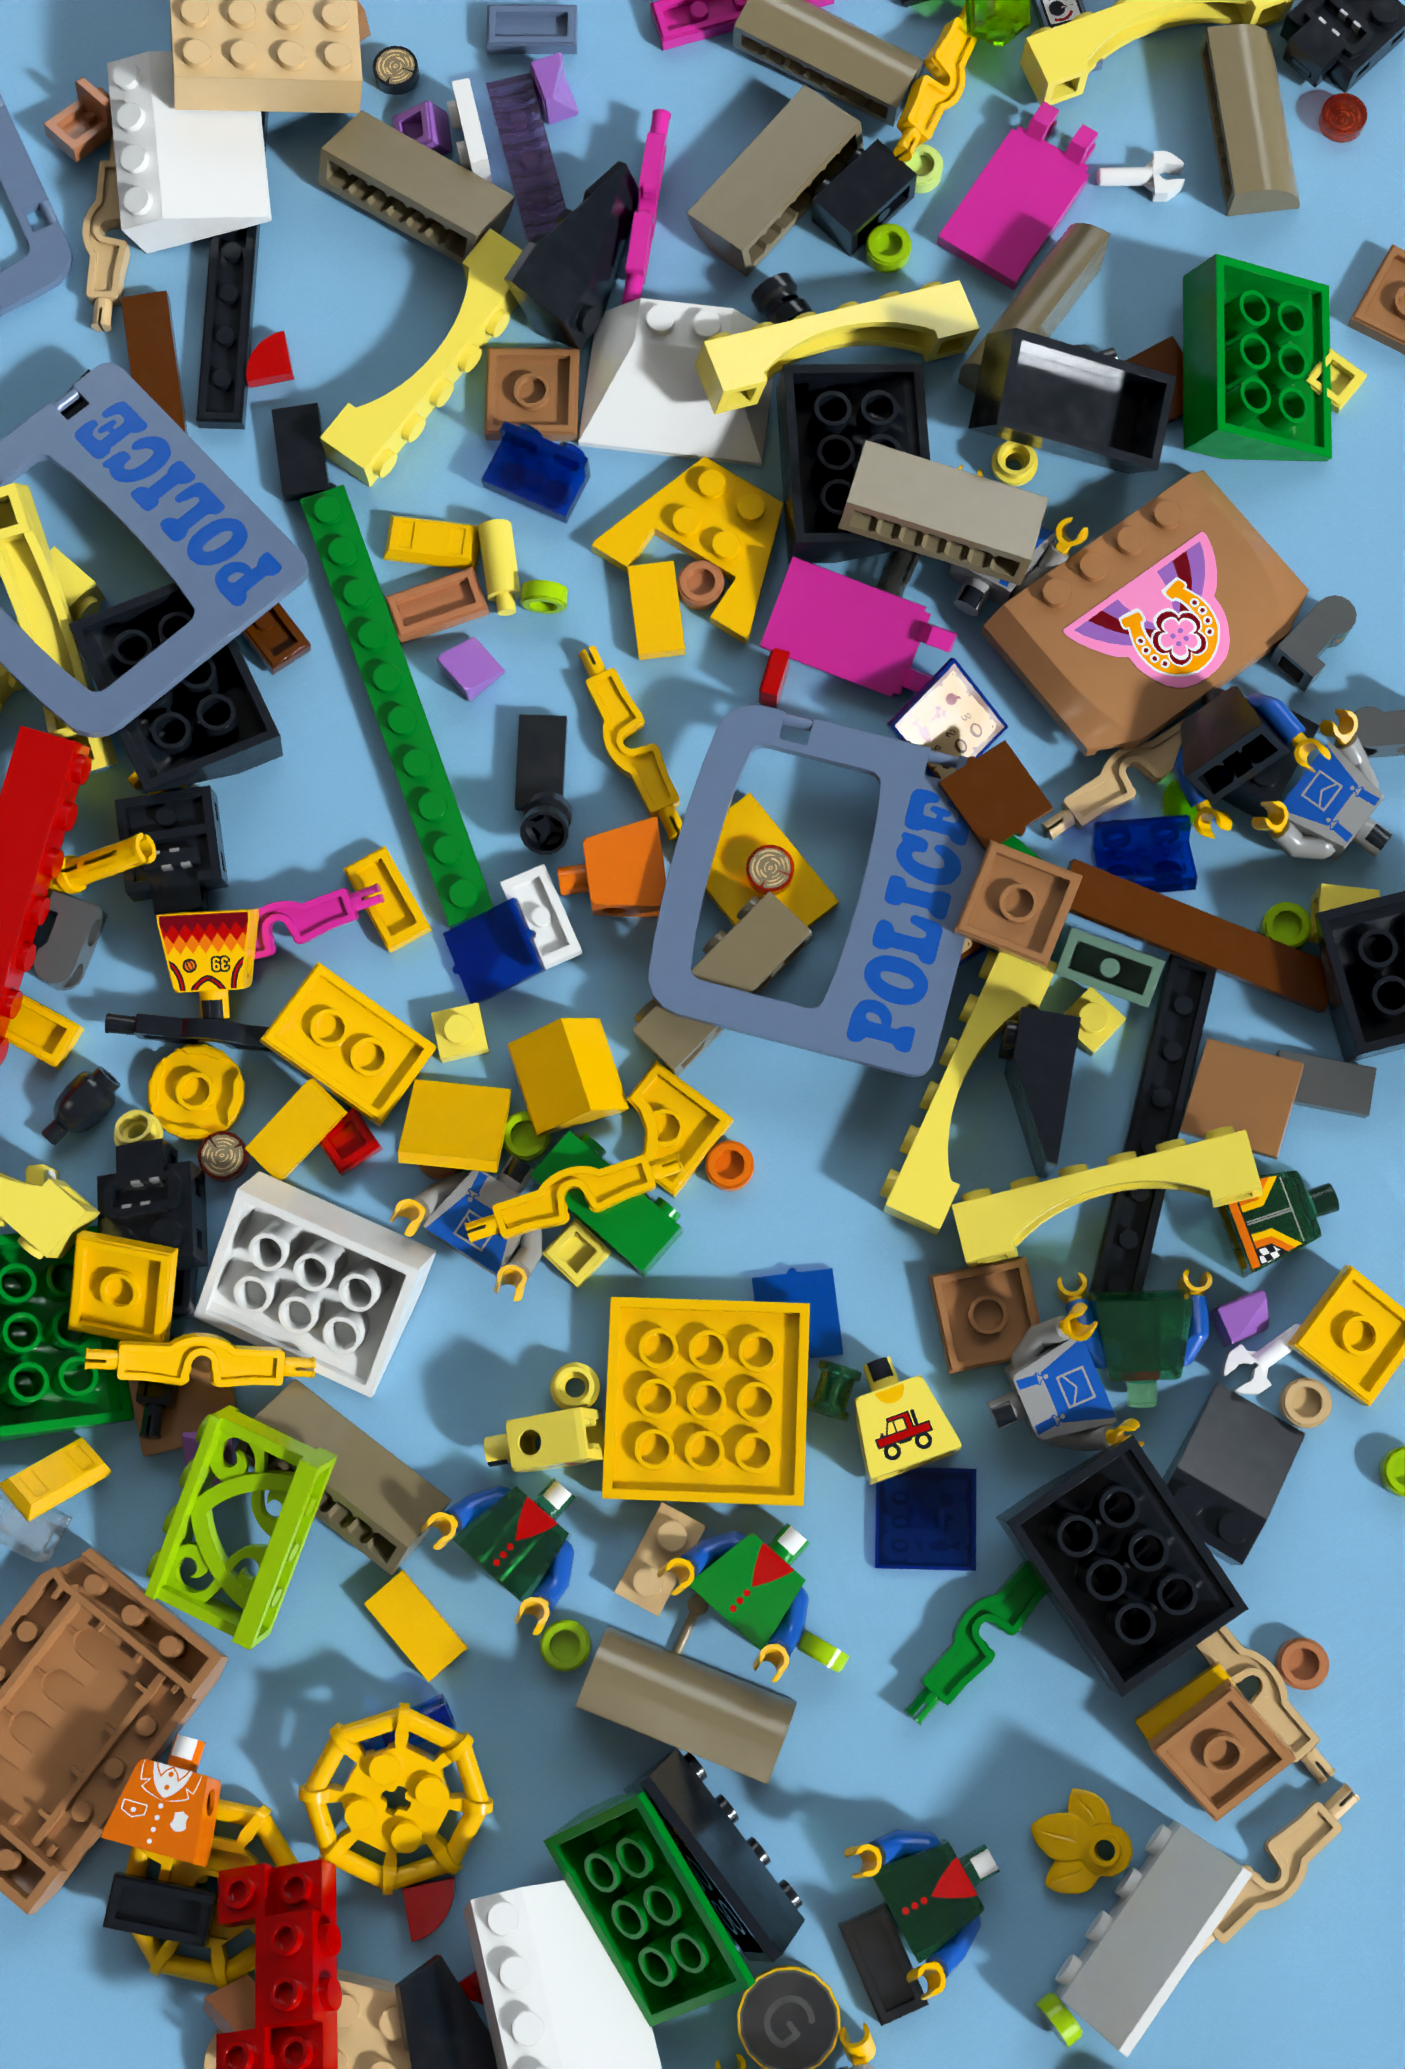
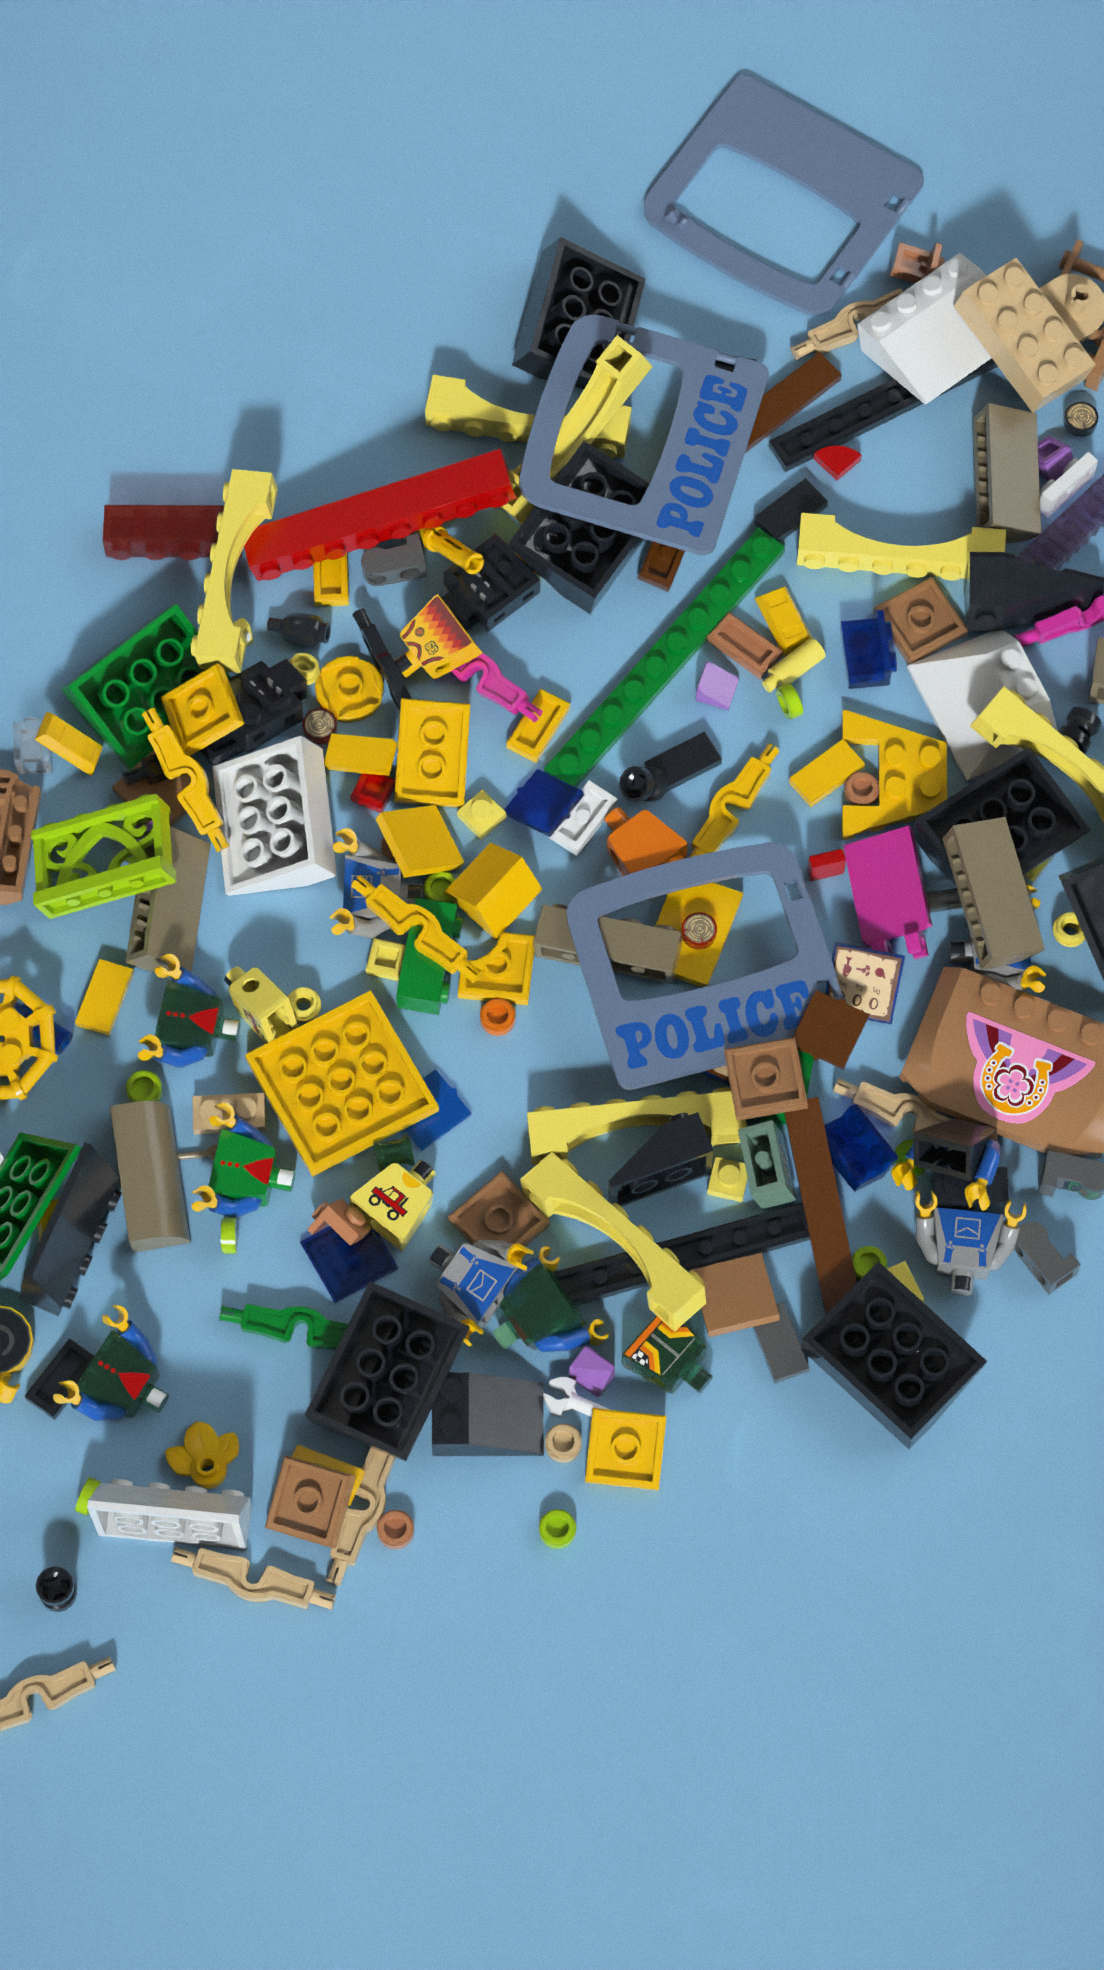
camera: 55 degrees right, 10 degrees down
(887, 1503) = (343, 1218): none -> nougat bracket

